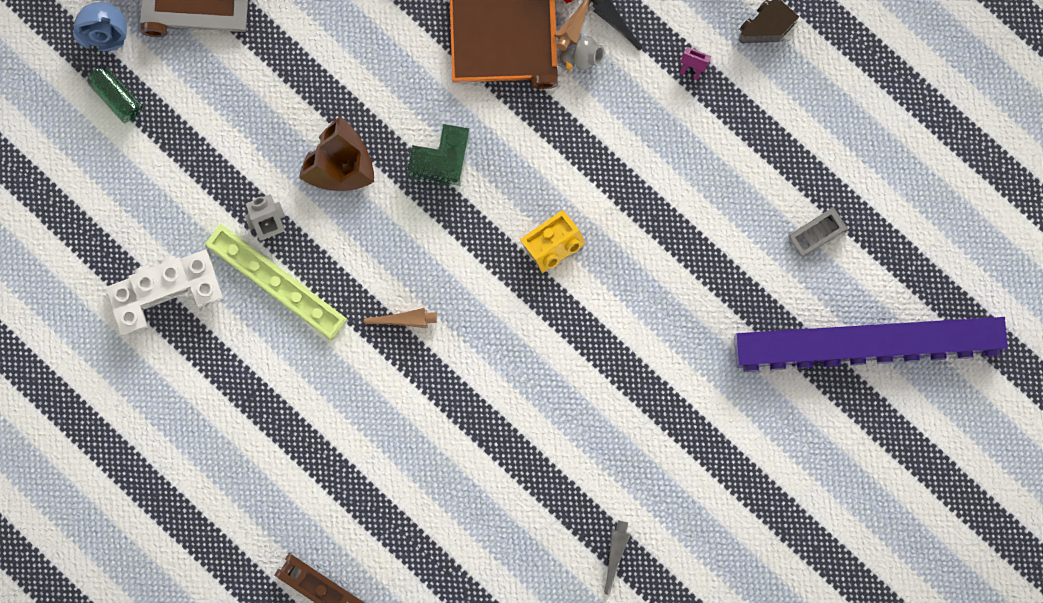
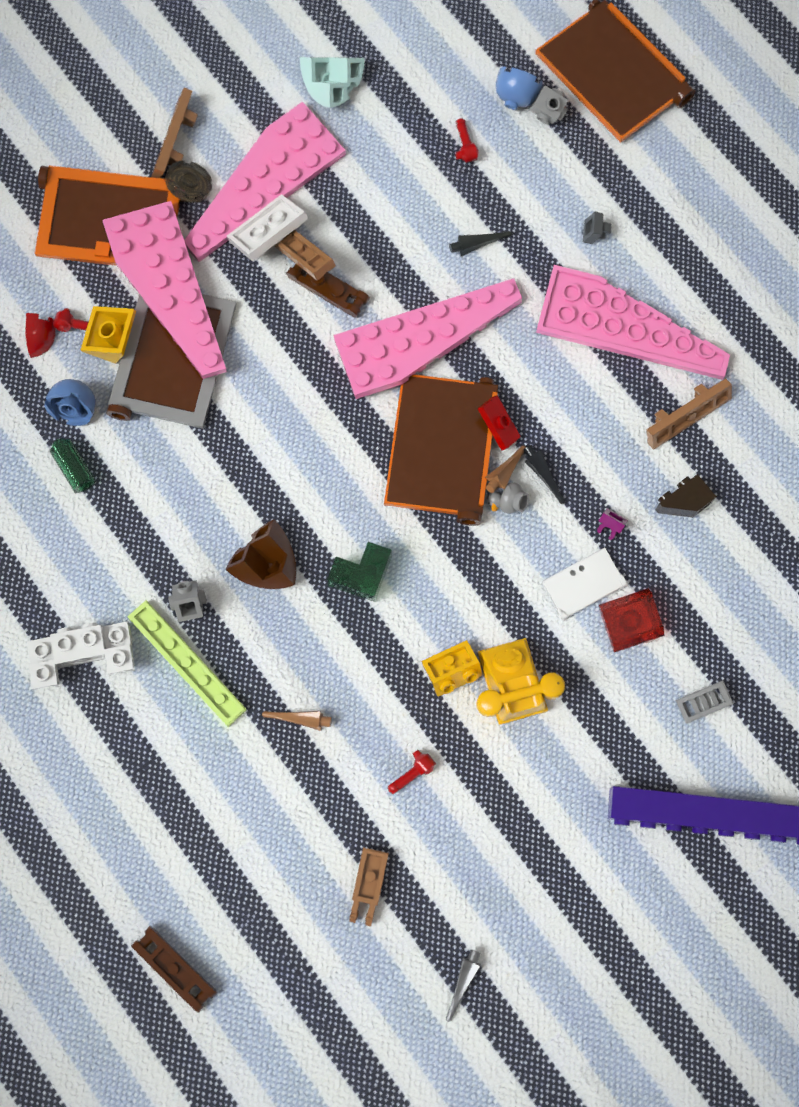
camera: 10 degrees right, 5 degrees down
(504, 472) = (369, 883): none -> medium nougat hinge
(538, 345) = (422, 765): none -> red piece
(619, 246) = (514, 683): none -> yellow piece
(669, 137) = (578, 588): none -> white door
(730, 160) = (631, 620): none -> clear red slope

